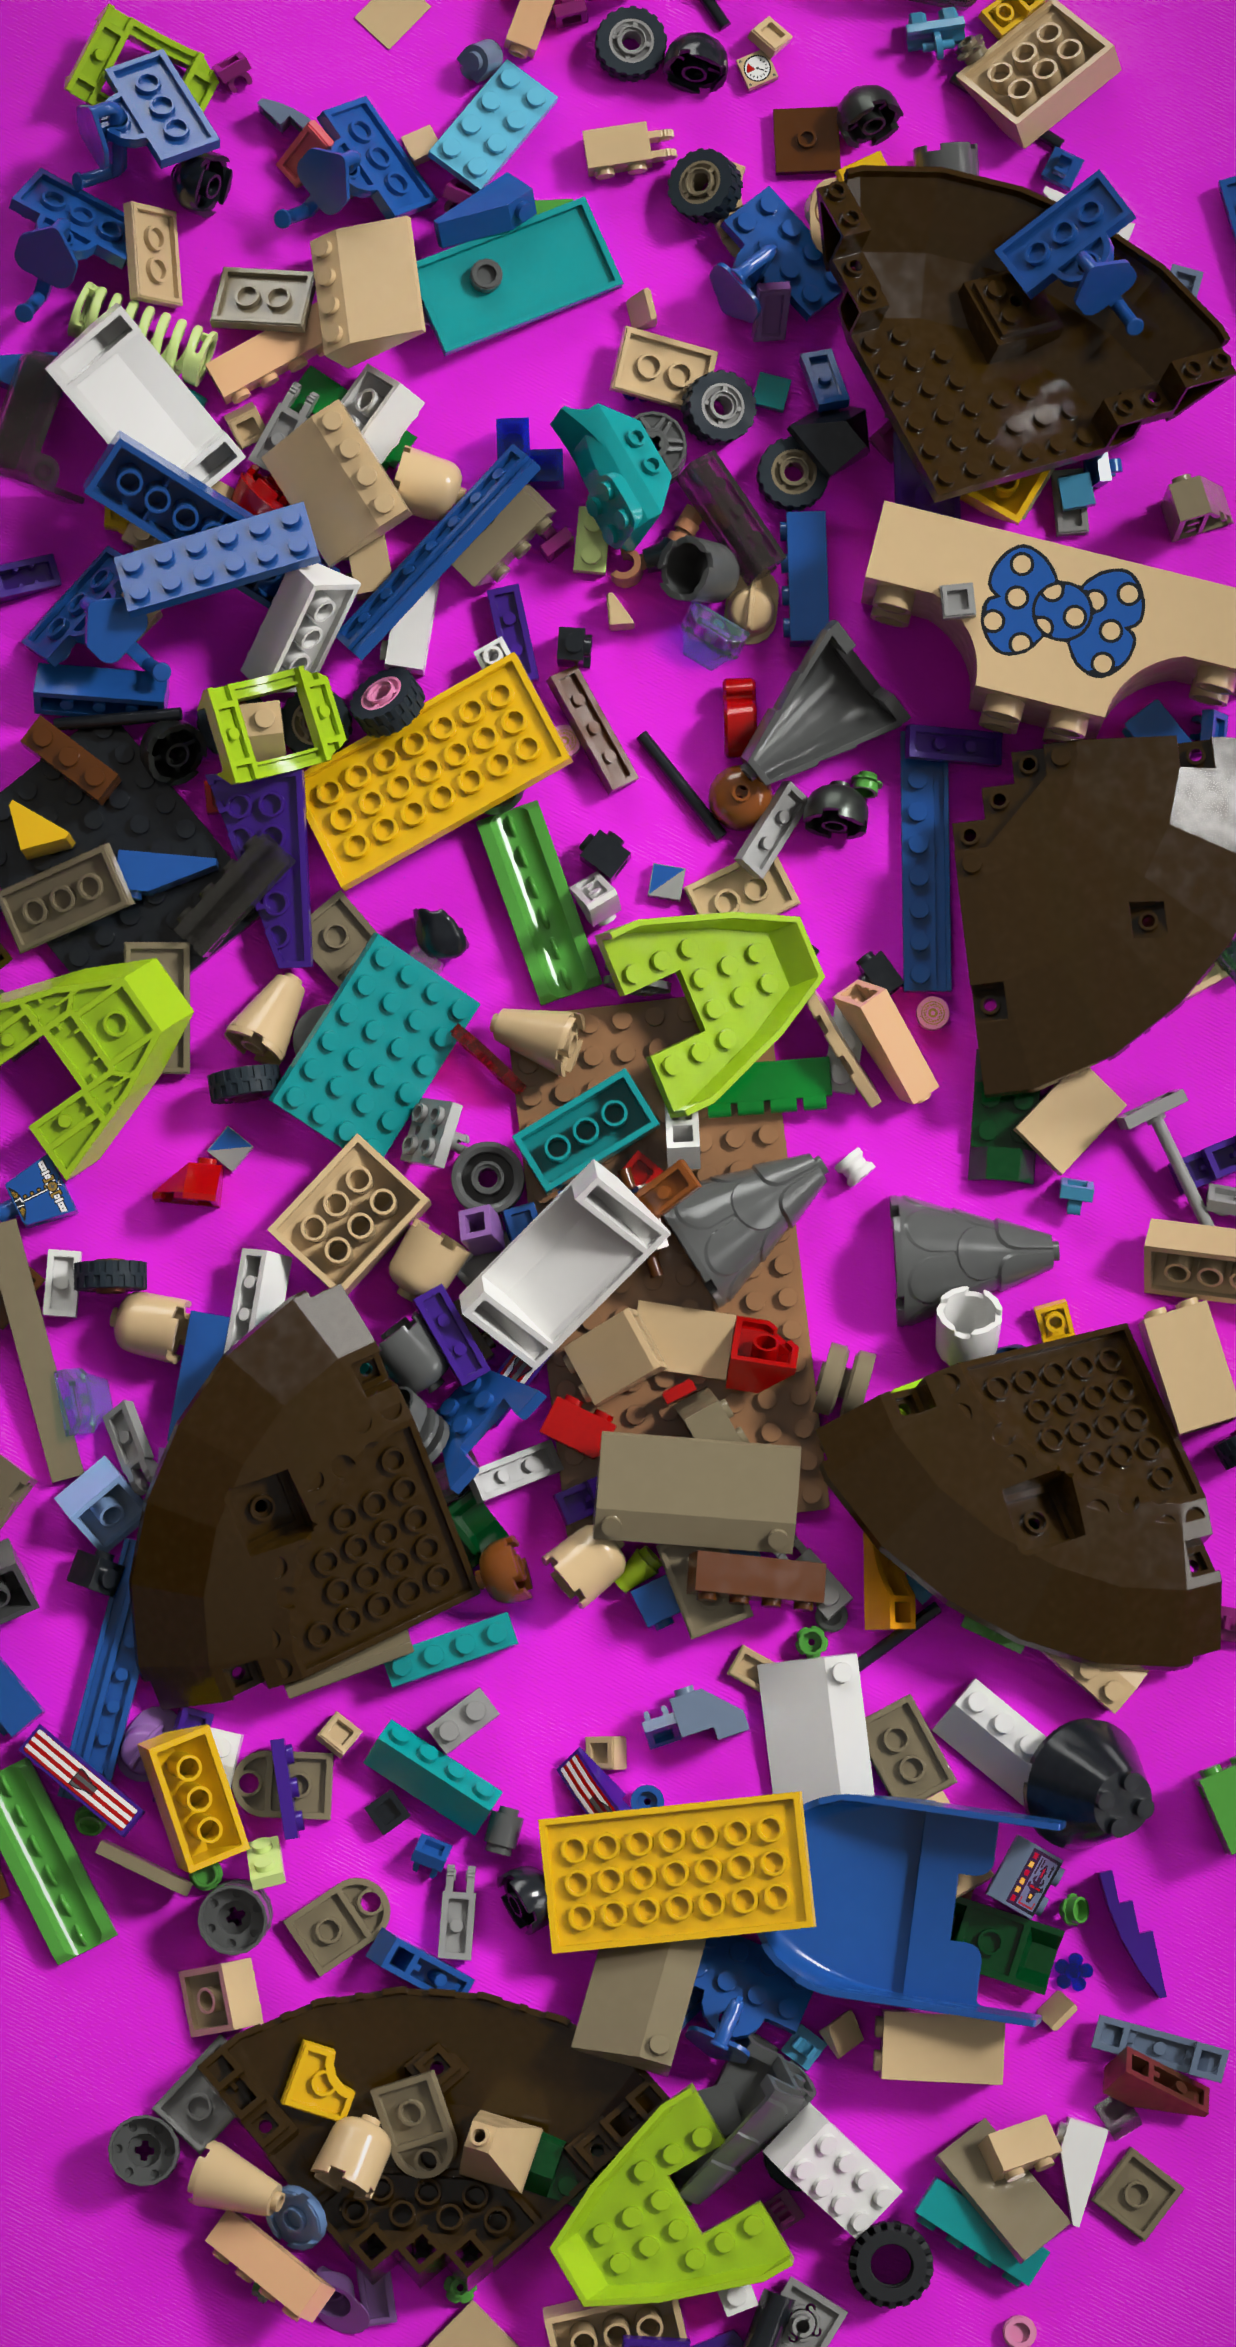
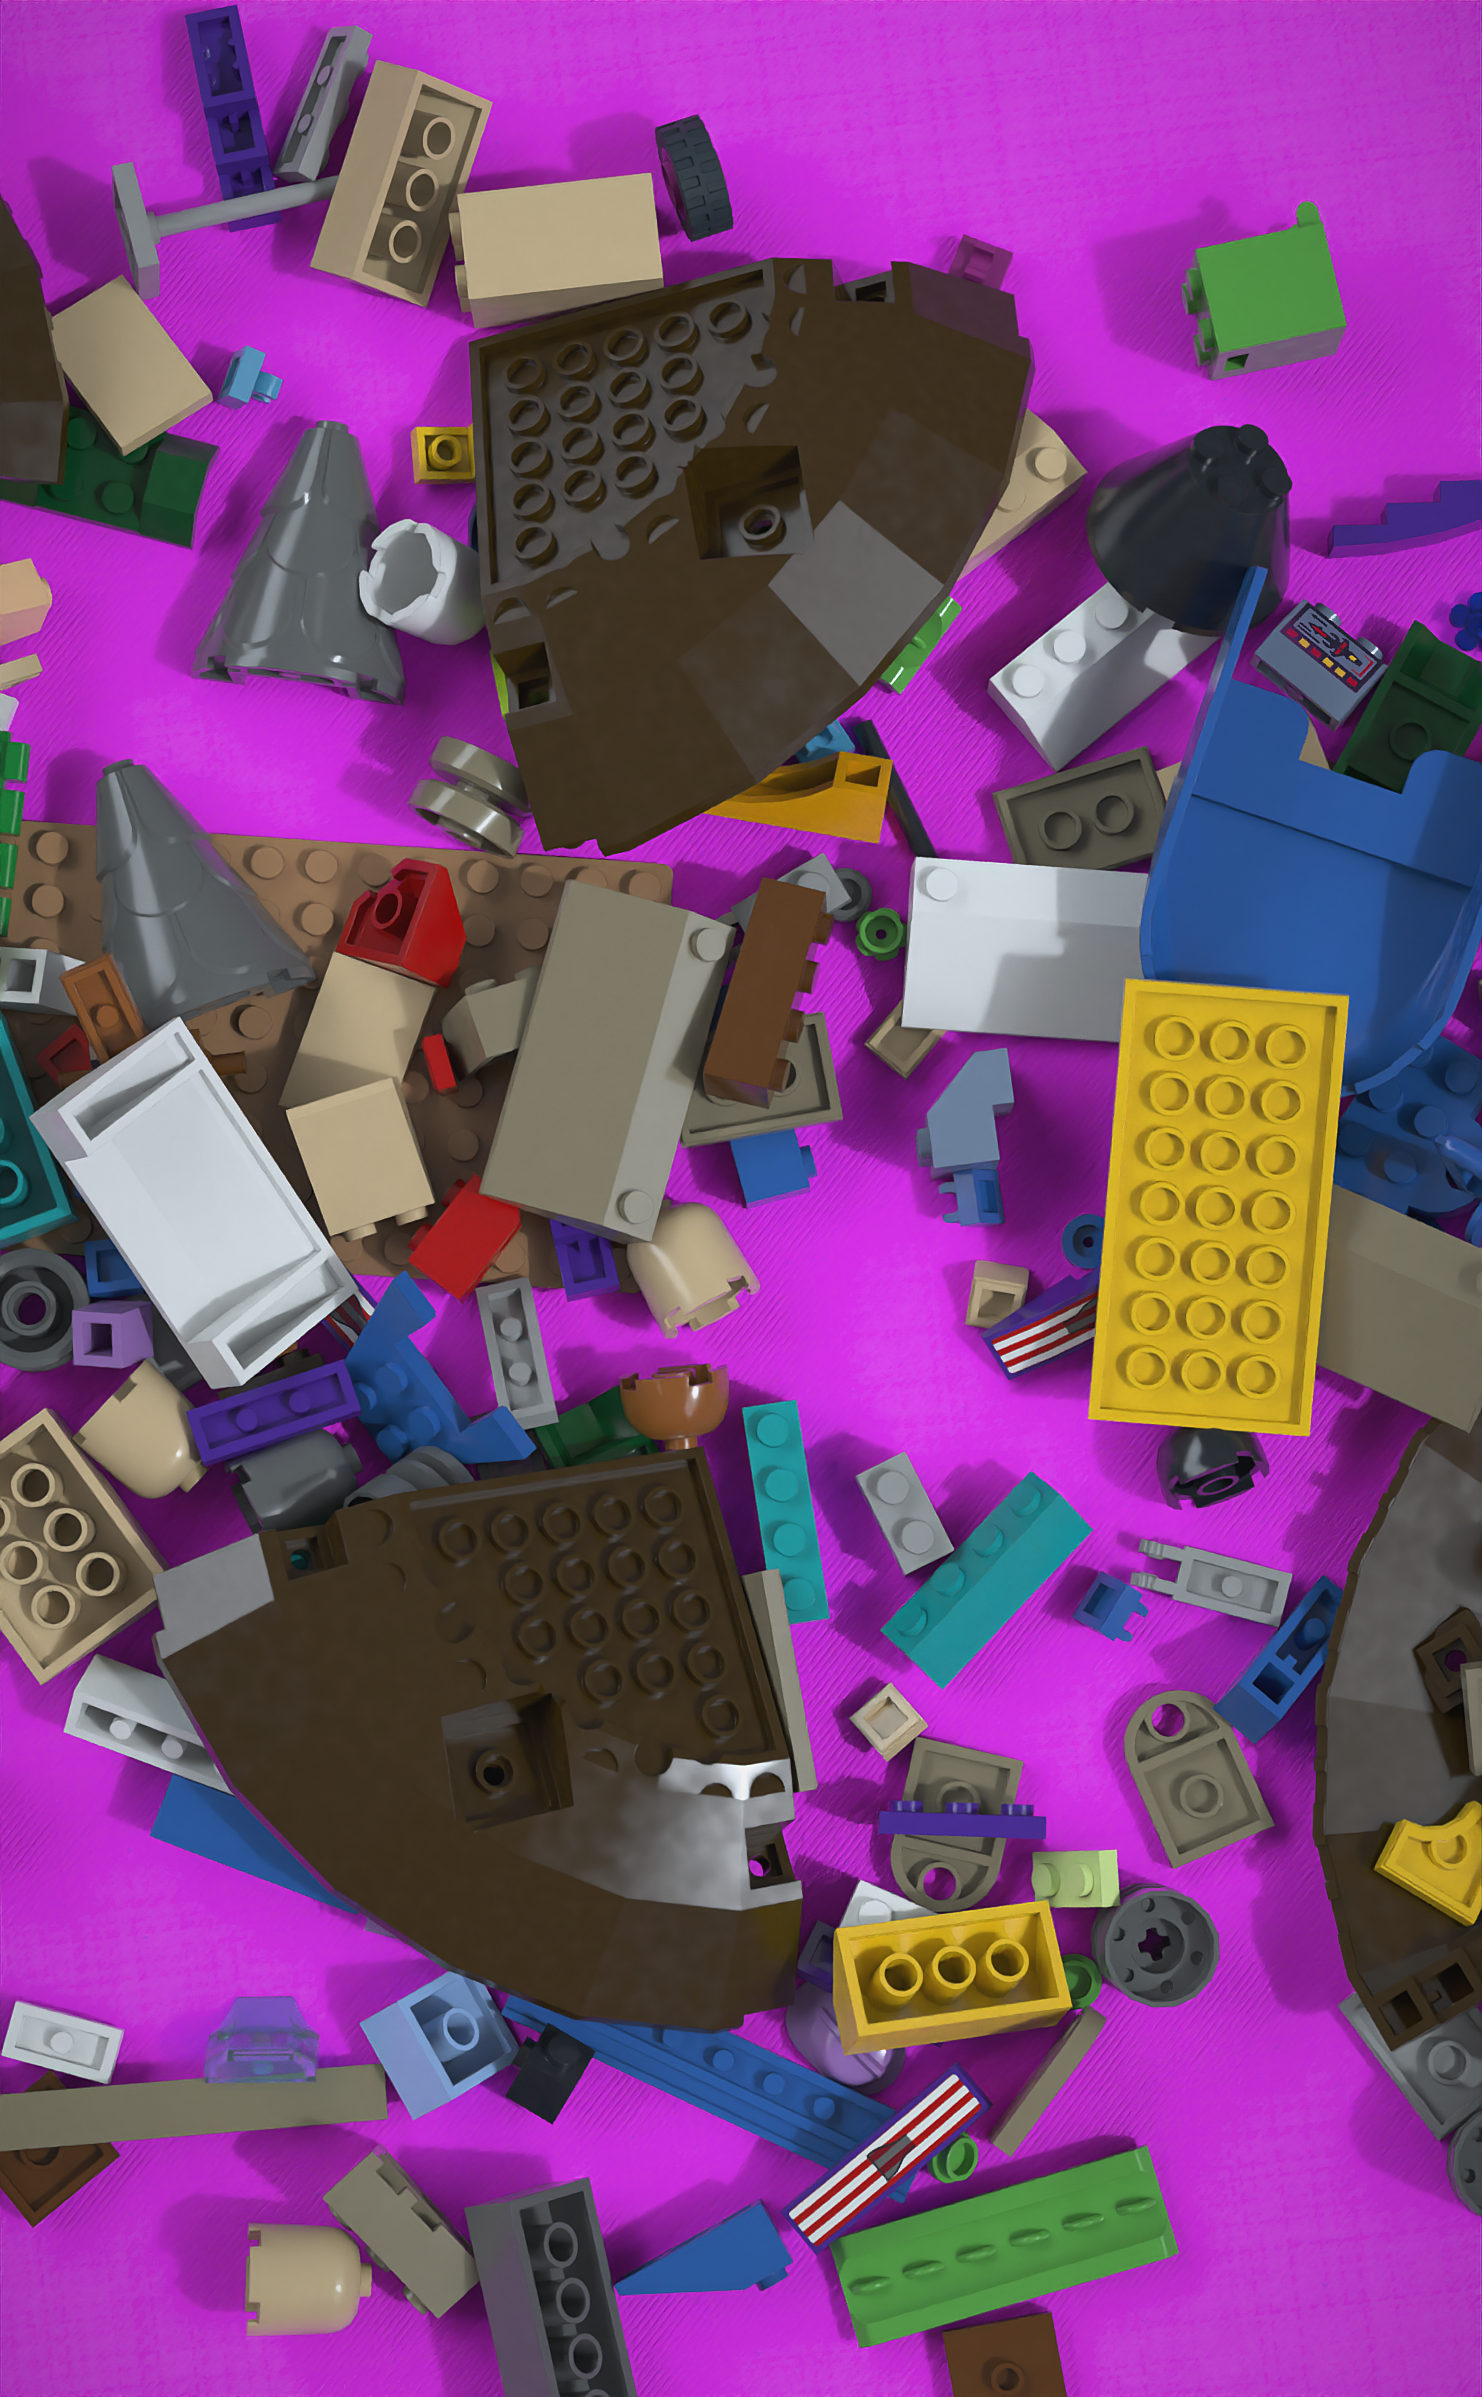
camera: 80 degrees left, 0 degrees up
(110, 1276) = (65, 1959): black wheel -> none
(131, 1445) = (352, 1975): light grey hinge -> none
(151, 1325) = (160, 1905): tan cylinder -> none
(221, 1997) = (1280, 1992): slope -> none
(387, 1812) = (1028, 1665): black plate -> none
(503, 1831) = (1093, 1482): dark grey brick -> none
(639, 1568) = (711, 1183): lime cone -> none
(854, 1167) = (134, 720): white wheel -> none
(1074, 1910) = (1382, 601): bright green plate -> none

